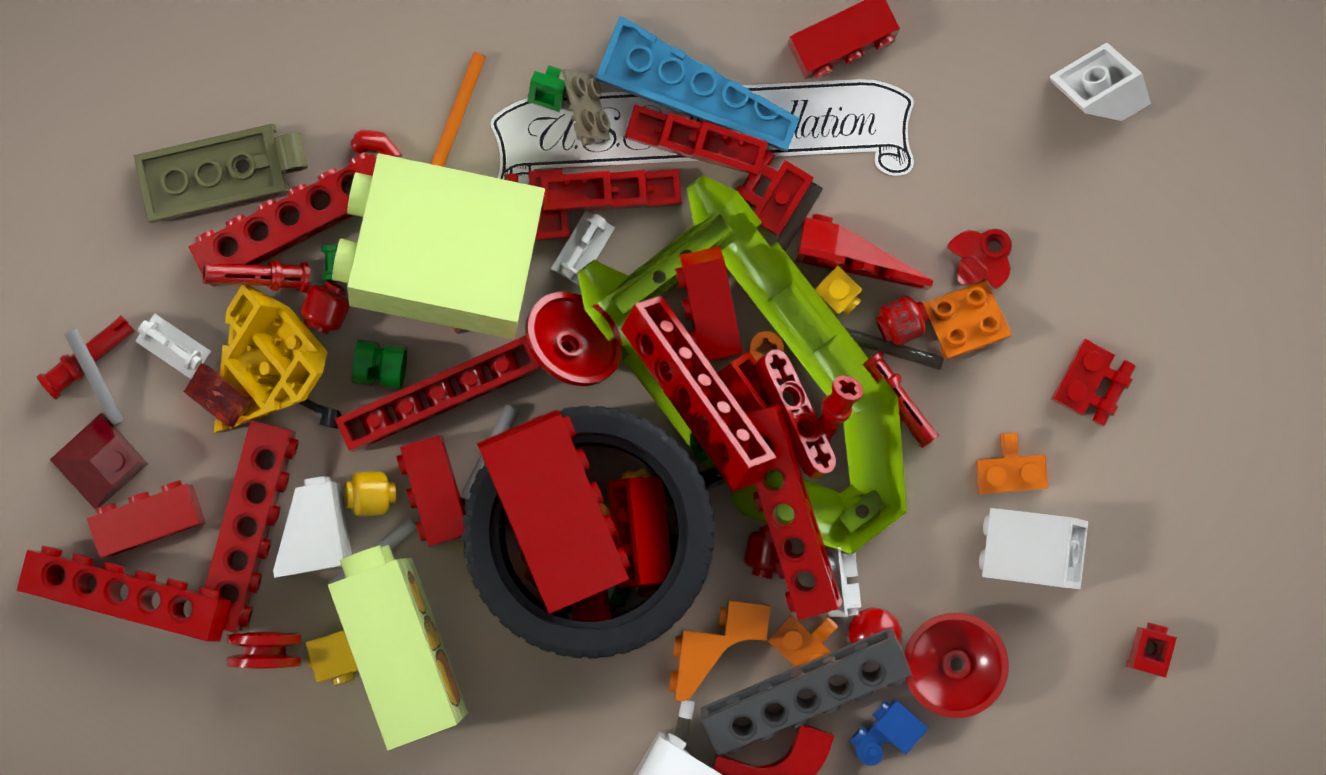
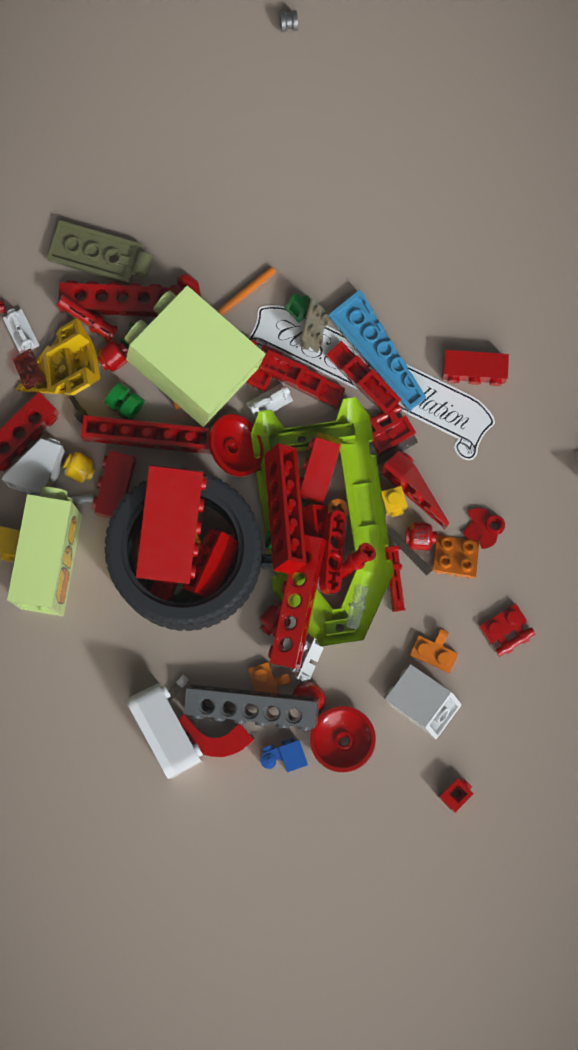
camera: 30 degrees right, 5 degrees down
(701, 650) = (209, 653): orange arch -> none
(872, 472) = (356, 607): none -> clear axle

